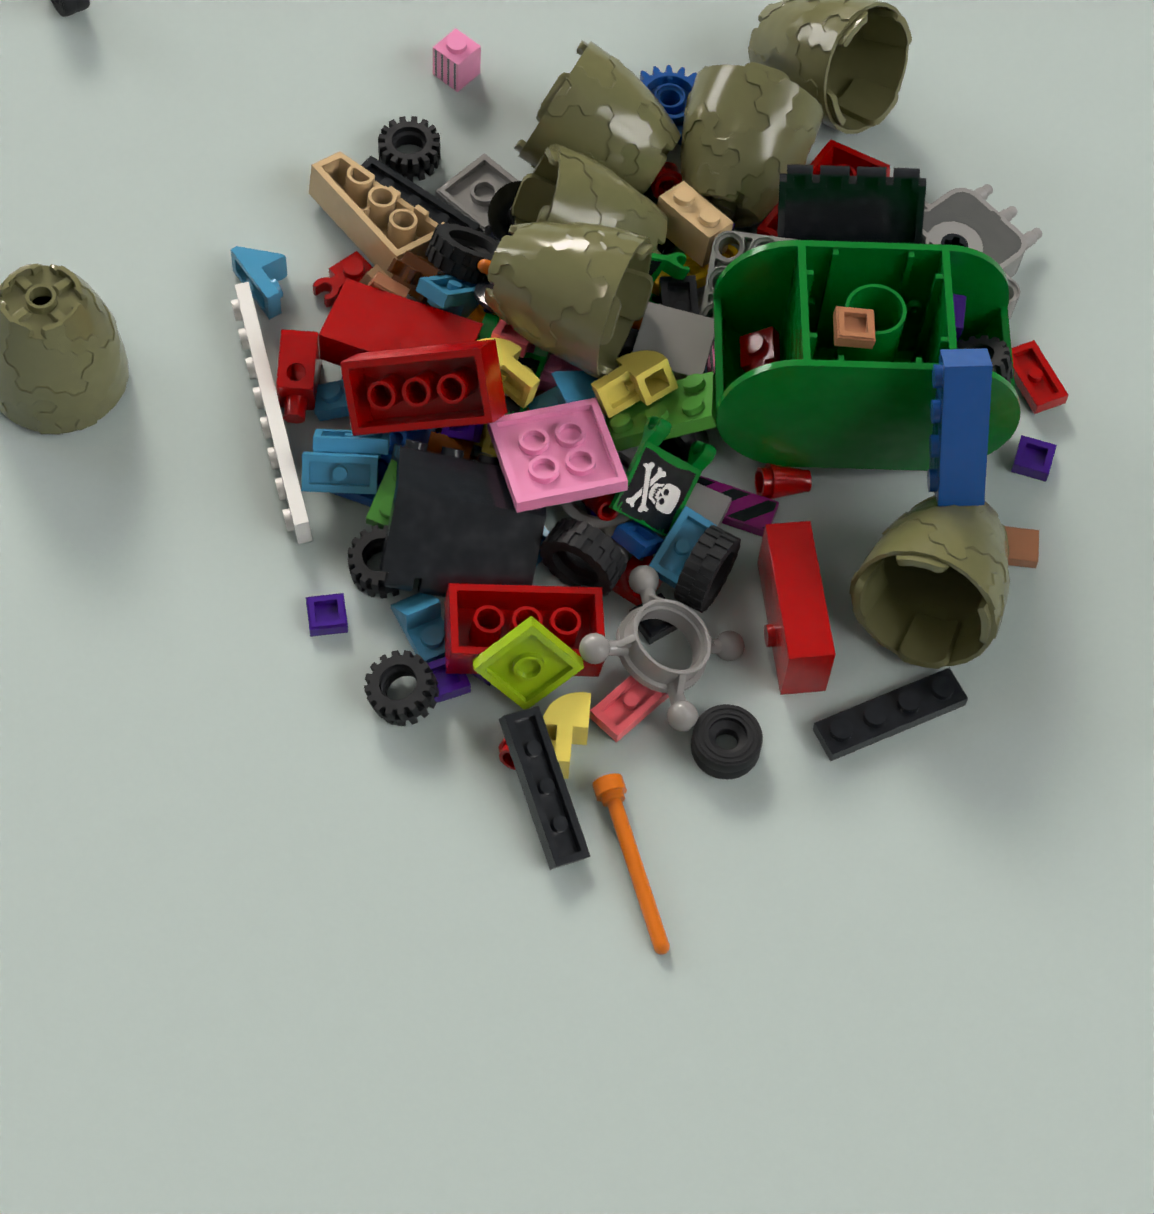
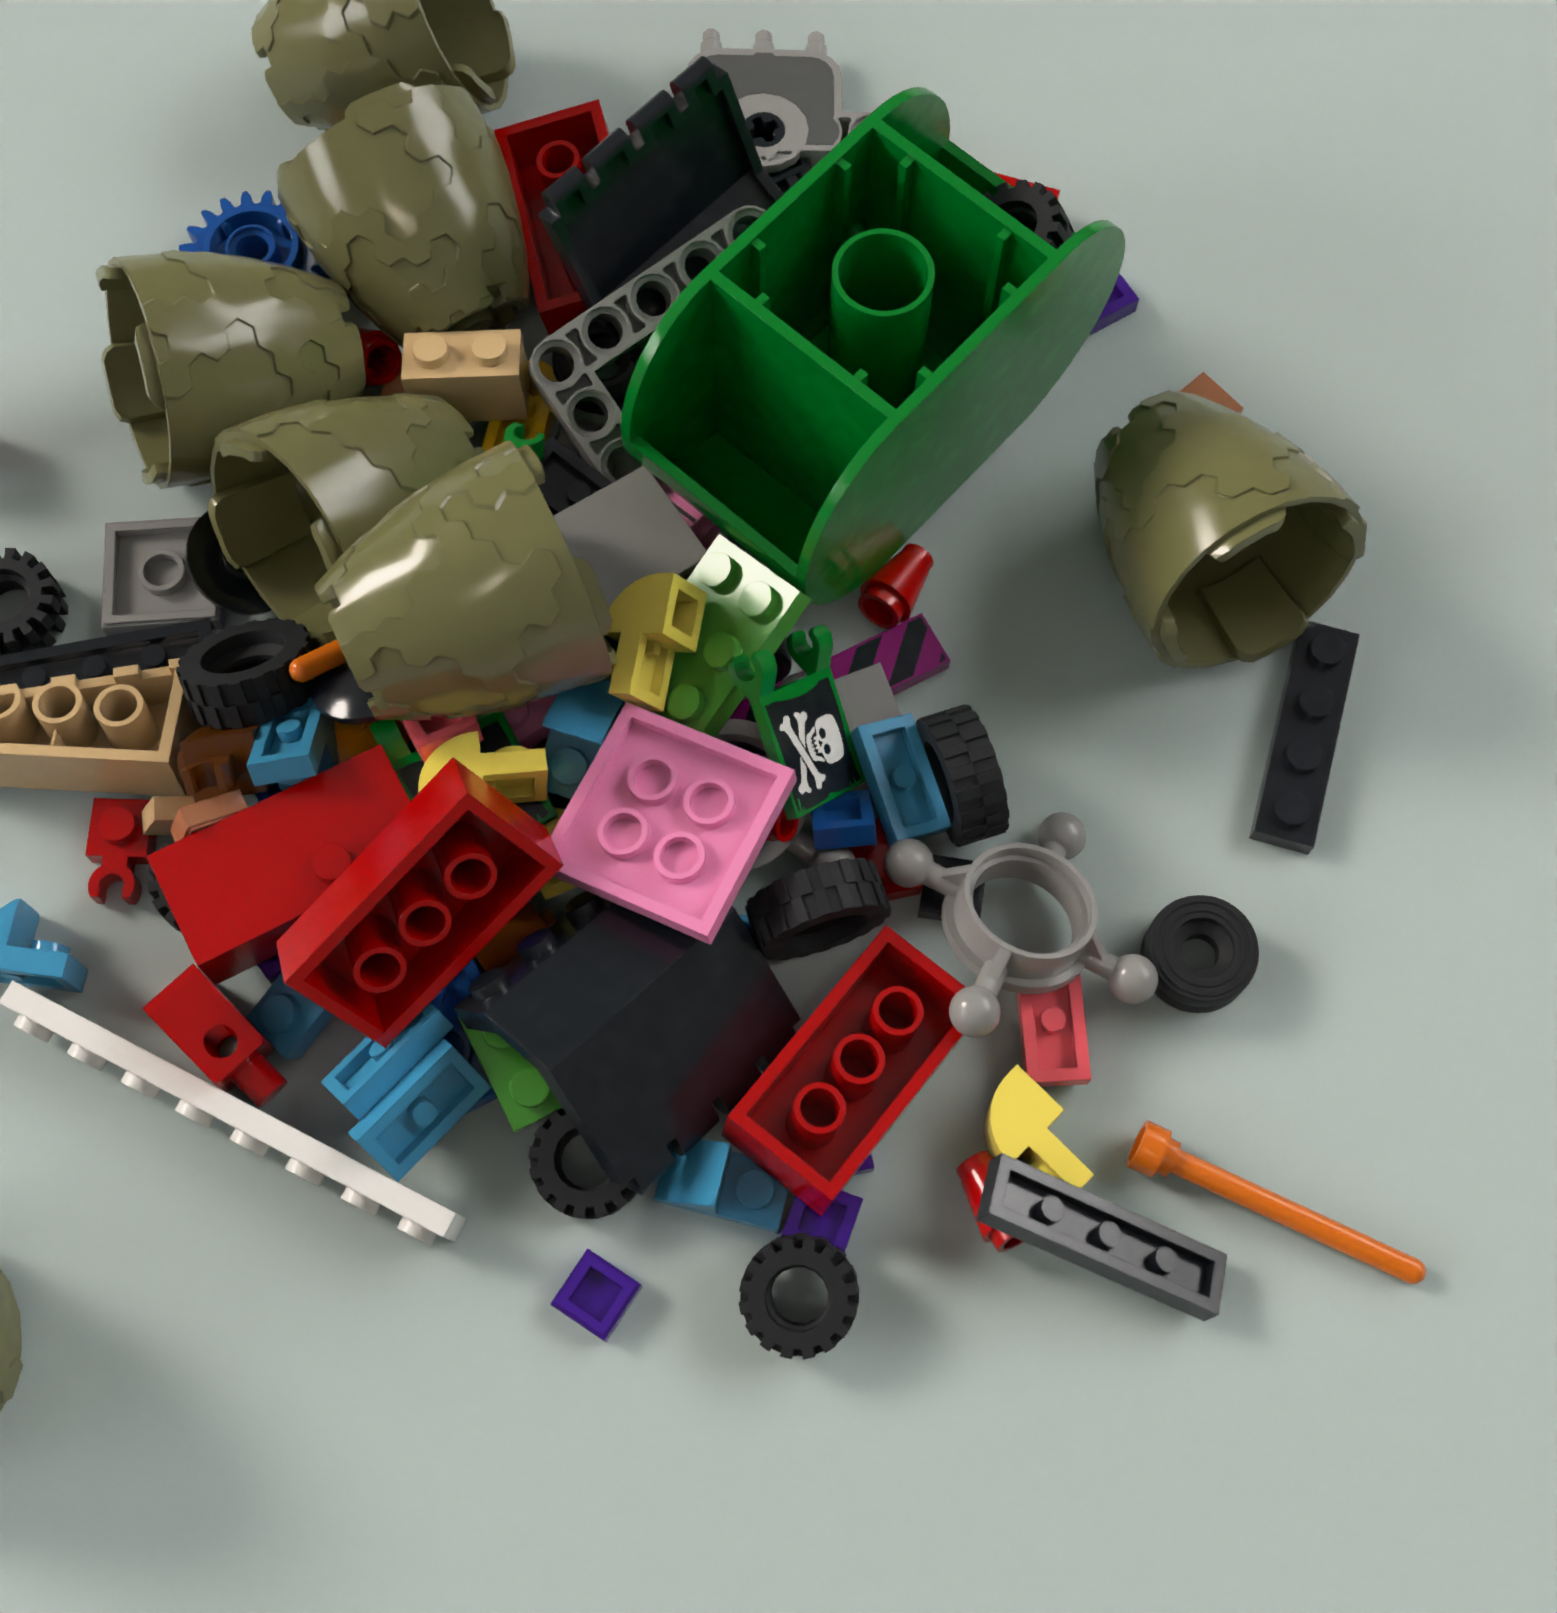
camera: 45 degrees left, 10 degrees up
(528, 663) = (921, 1111): lime tile -> none
(759, 348) = (742, 462): red plate -> none
(795, 608) = (1099, 719): red brick -> none
(854, 327) = (897, 319): nougat tile -> none
(960, 427) = (1117, 326): blue wedge -> none

